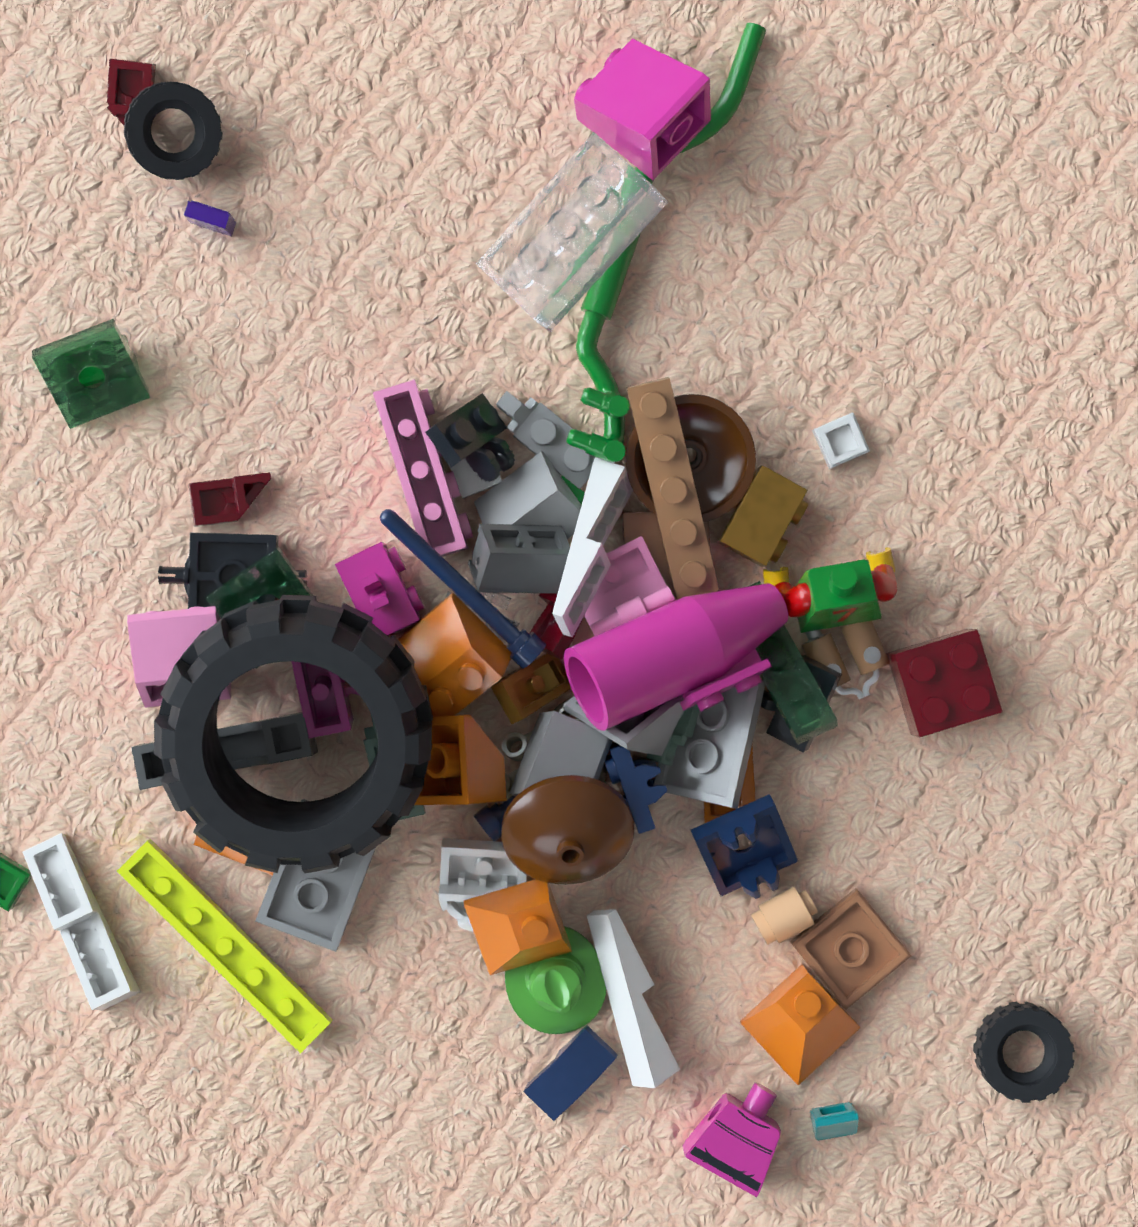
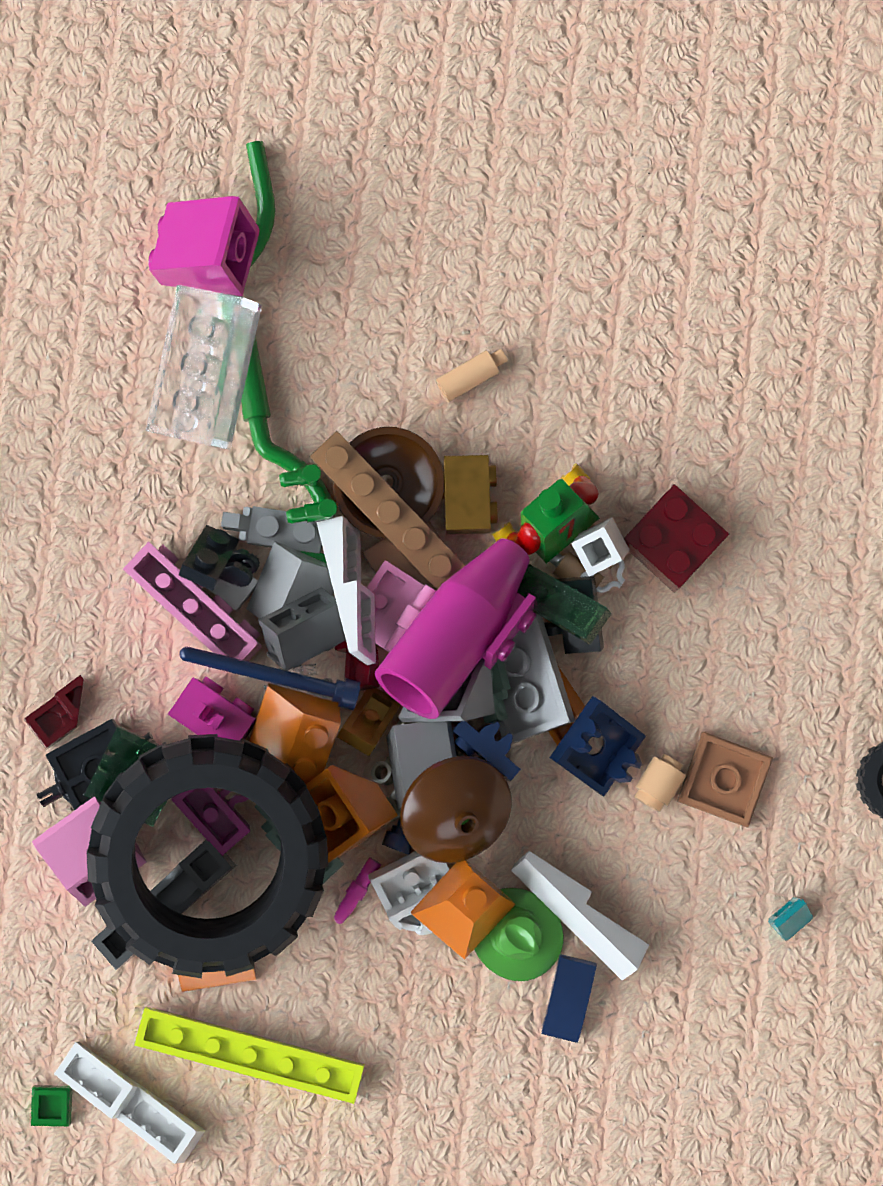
camera: 25 degrees left, 5 degrees down
(314, 903) = (298, 977): light grey plate -> none
(422, 846) = (356, 891): none -> dark pink piece
(737, 1139) = (724, 974): dark pink torso -> none
(800, 1024) = (721, 859): orange slope -> none
(837, 395) = (470, 374): none -> light nougat cylinder
(841, 440) = (493, 406): white tile -> none
(866, 650) = (600, 546): none -> white brick

